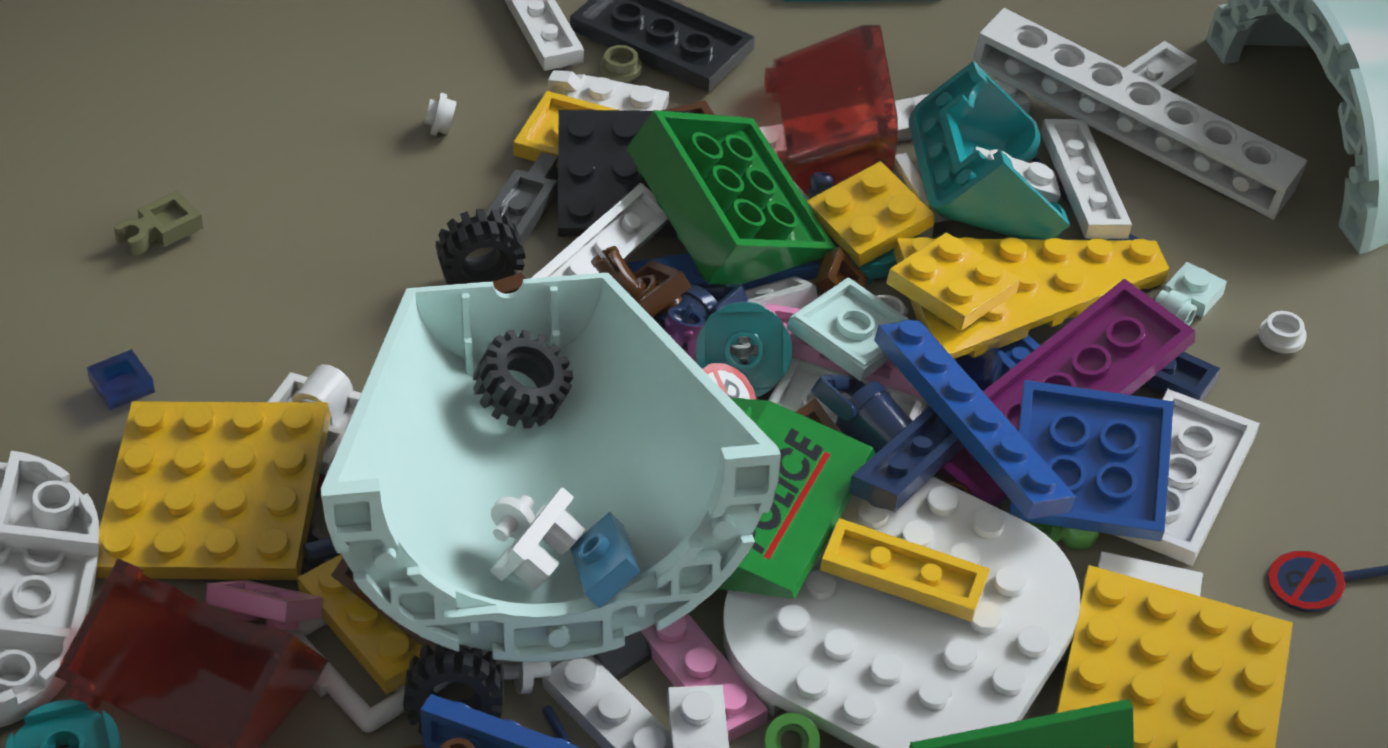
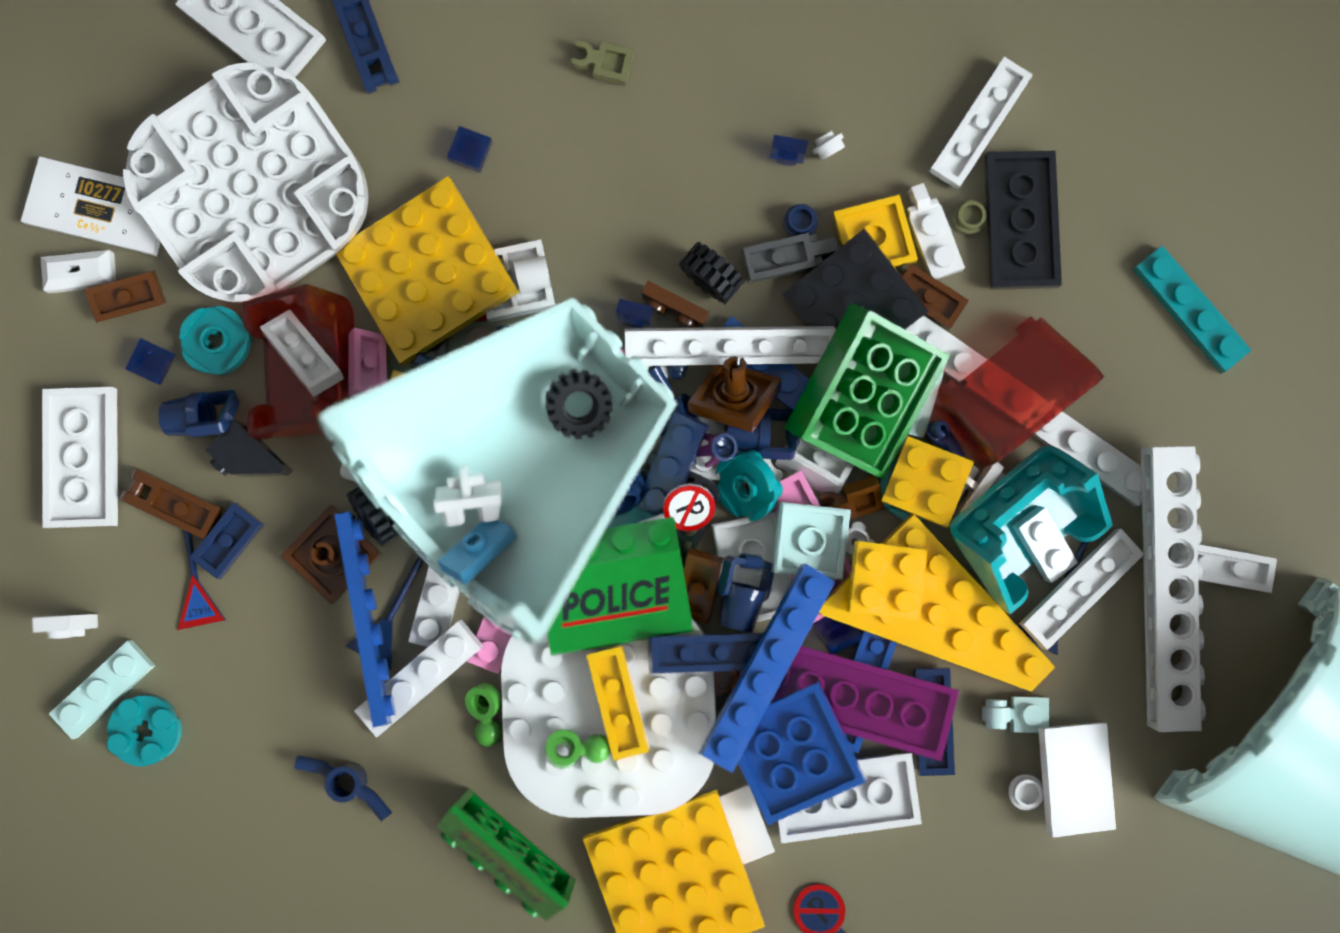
camera: 55 degrees right, 40 degrees up
(184, 640) = (302, 353): none -> white plate
(412, 141) = (788, 150): none -> clear blue plate
(492, 174) = (800, 220): none -> dark blue plate
(925, 653) = (594, 748): none -> bright green plate
(1295, 284) = (1076, 779): none -> white tile

